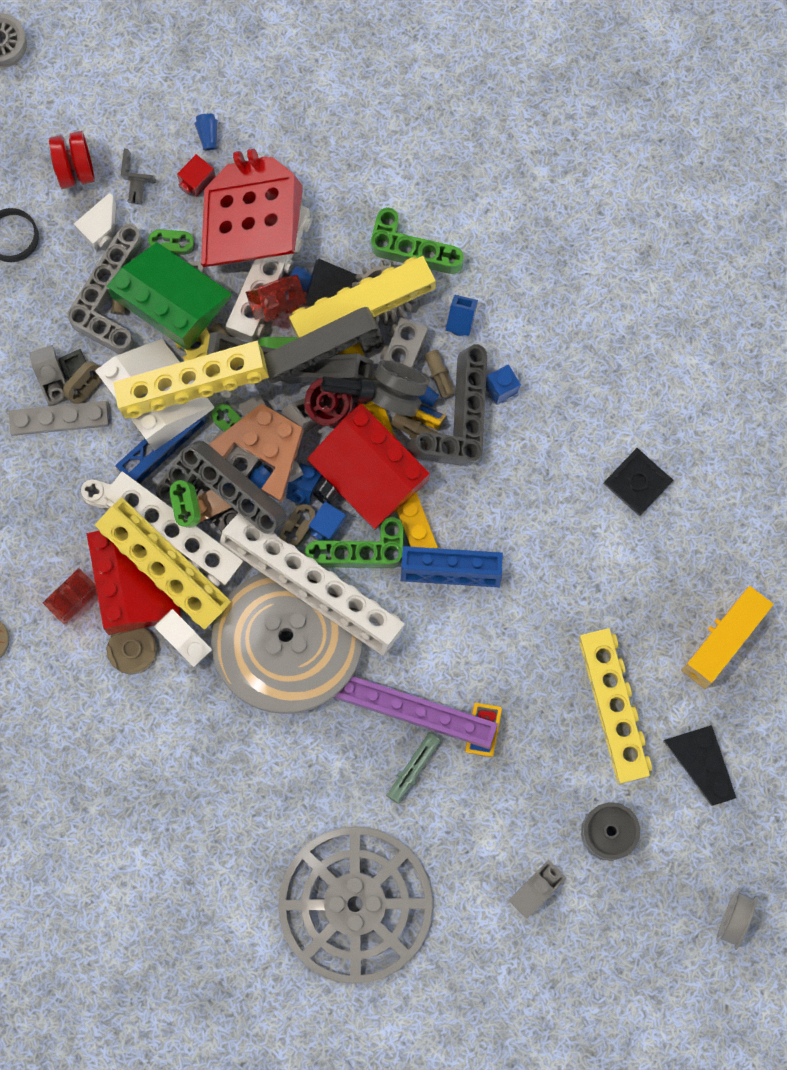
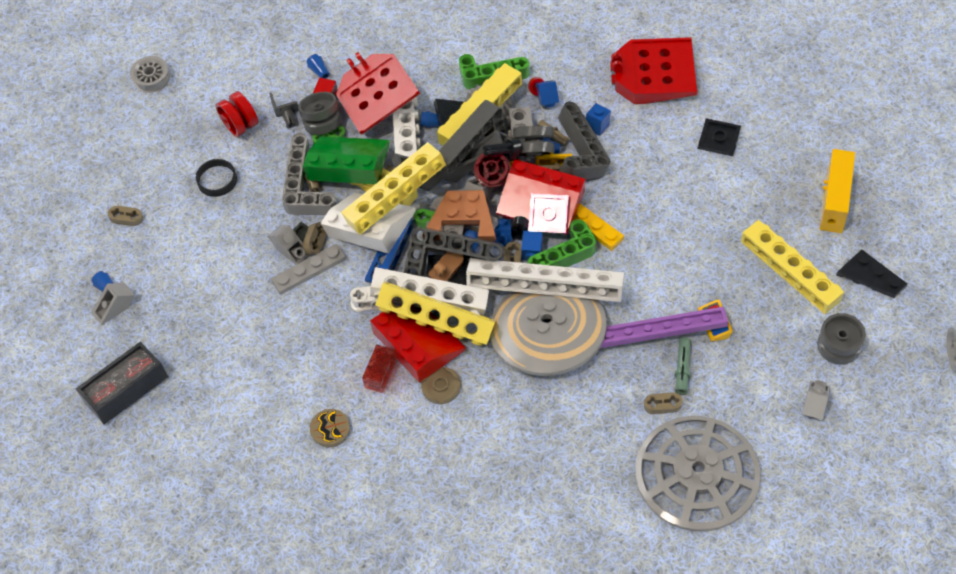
camera: 25 degrees left, 20 degrees down
(98, 223) = (273, 145): white slope -> none
(171, 208) = (320, 113): none -> dark grey wheel
(182, 638) = (475, 356): white slope -> none
(184, 504) = (433, 264): bright green beam -> none
(275, 294) = (420, 129): clear red brick -> none
(362, 807) = (662, 403): none -> dark tan beam
(363, 496) = (548, 213): none -> tile
(451, 566) = (632, 231): blue fence -> none
(455, 289) = (532, 85): none -> red tile
(585, 322) = (654, 70): none -> red hinge

